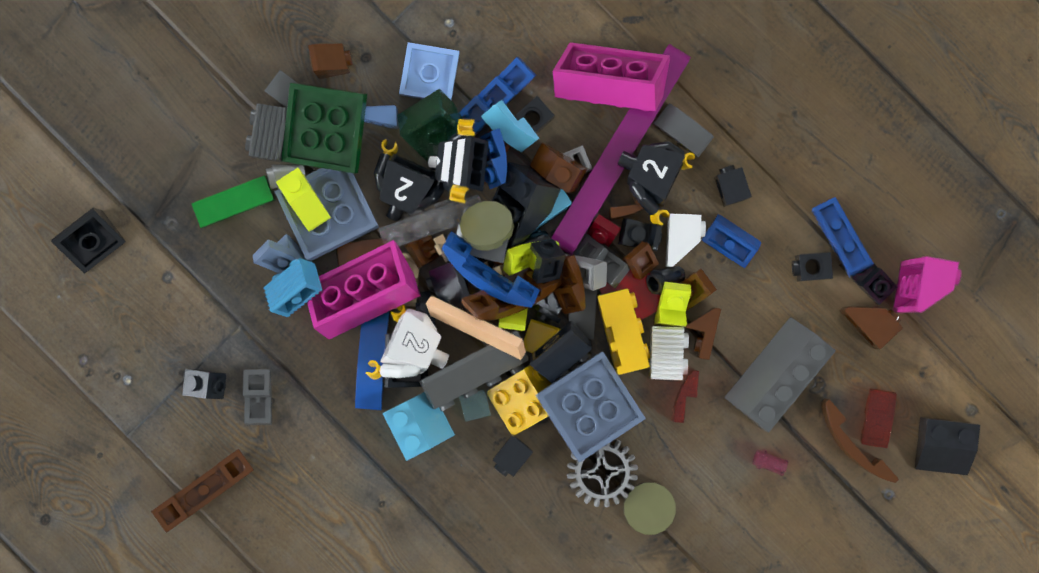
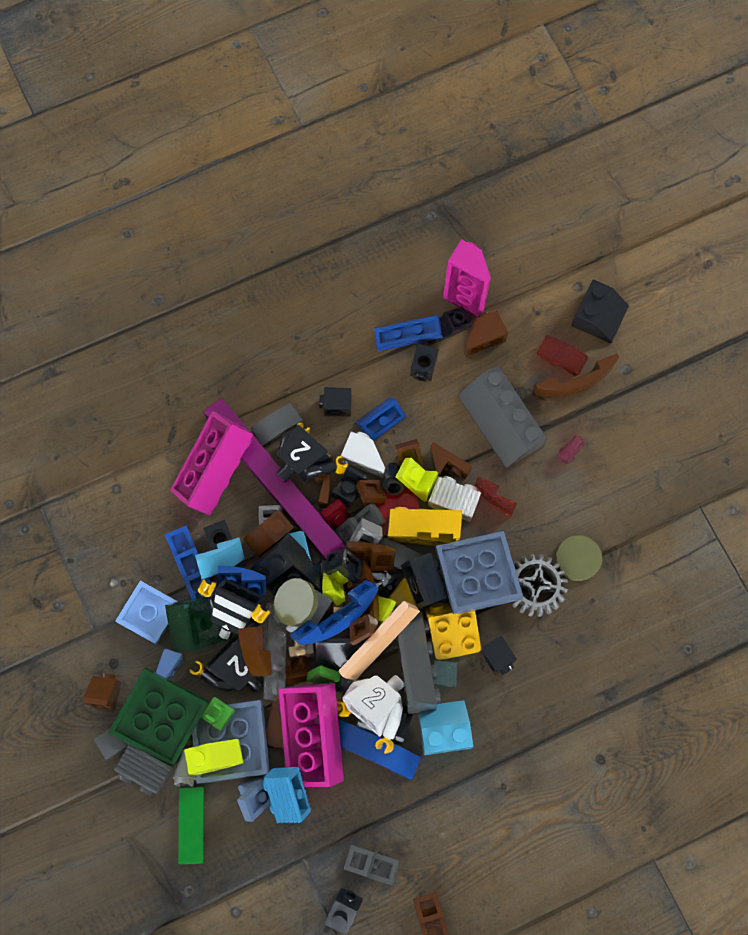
camera: 70 degrees left, 15 degrees down
(349, 187) = (218, 713): none -> bright green tile
(424, 197) = (256, 659): none -> reddish brown slope
(424, 280) = (323, 675): none -> bright green tile

